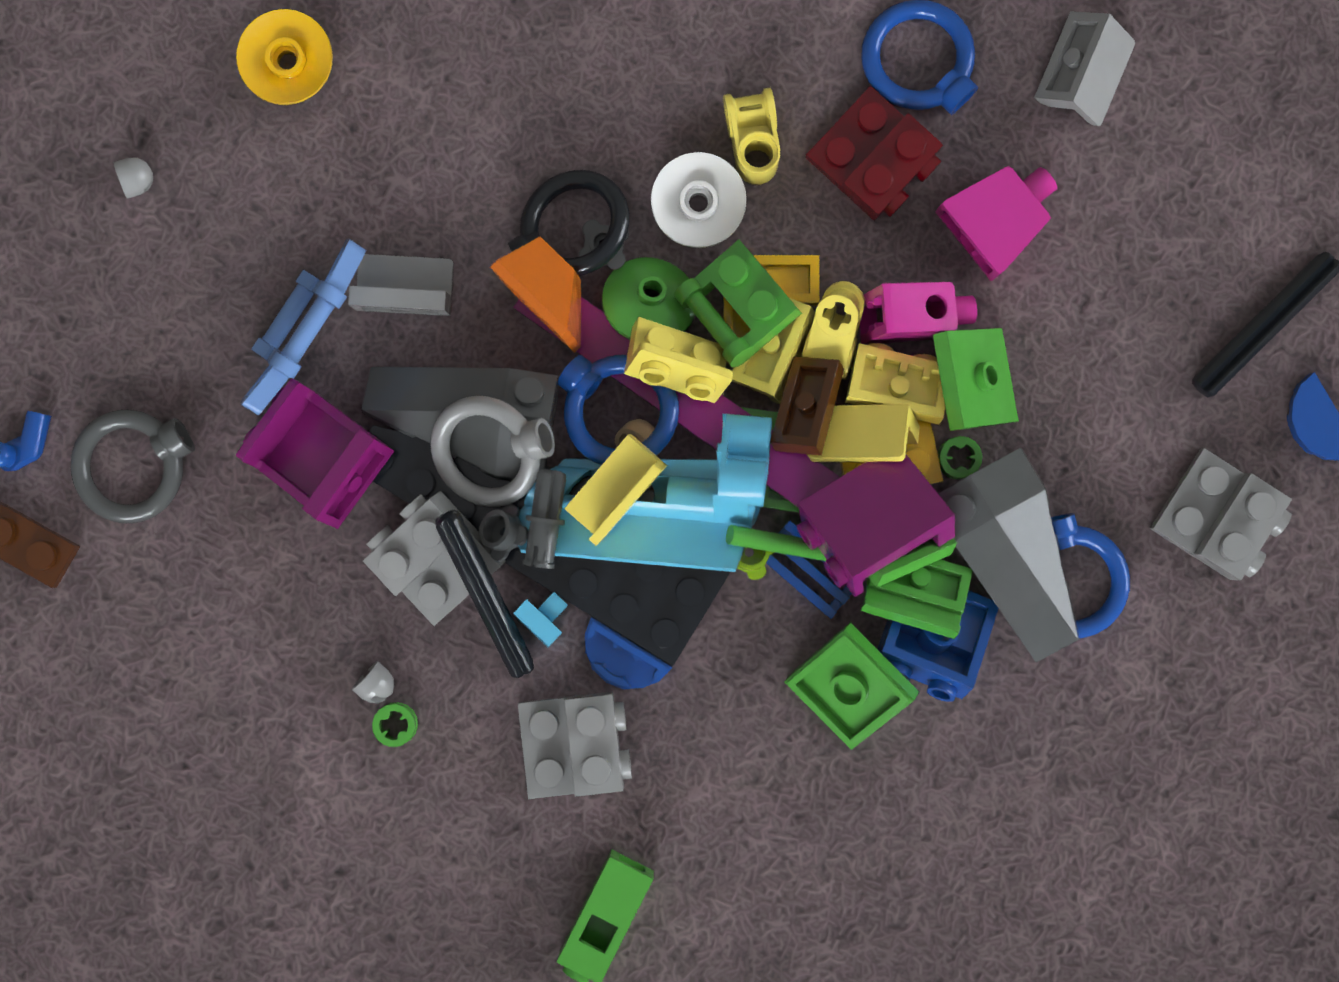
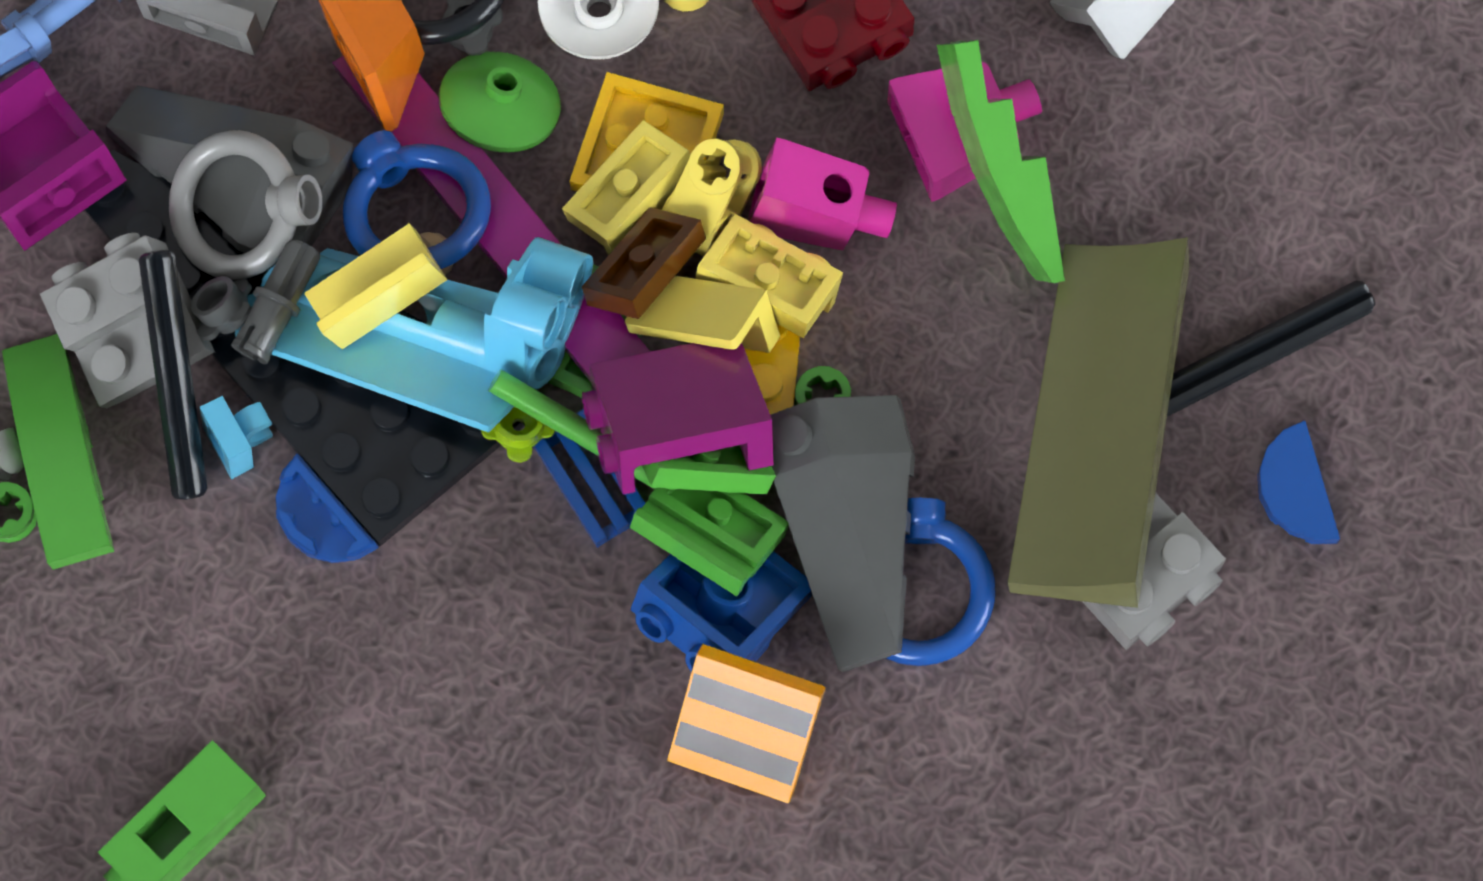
camera: 20 degrees right, 15 degrees down
(416, 672) = (56, 452): none -> bright green slope
(574, 745) = (220, 603): light grey plate -> none
(677, 361) = (503, 167): light yellow bracket -> none
(751, 295) = (619, 116): bright green plate -> none
(851, 686) = (591, 626): bright green plate -> none
(975, 378) = (867, 298): bright green plate -> none
(986, 725) = (745, 723): none -> light orange tile
(1057, 256) = (1011, 183): none -> bright green slope
(1176, 421) = (1100, 423): none -> olive arch

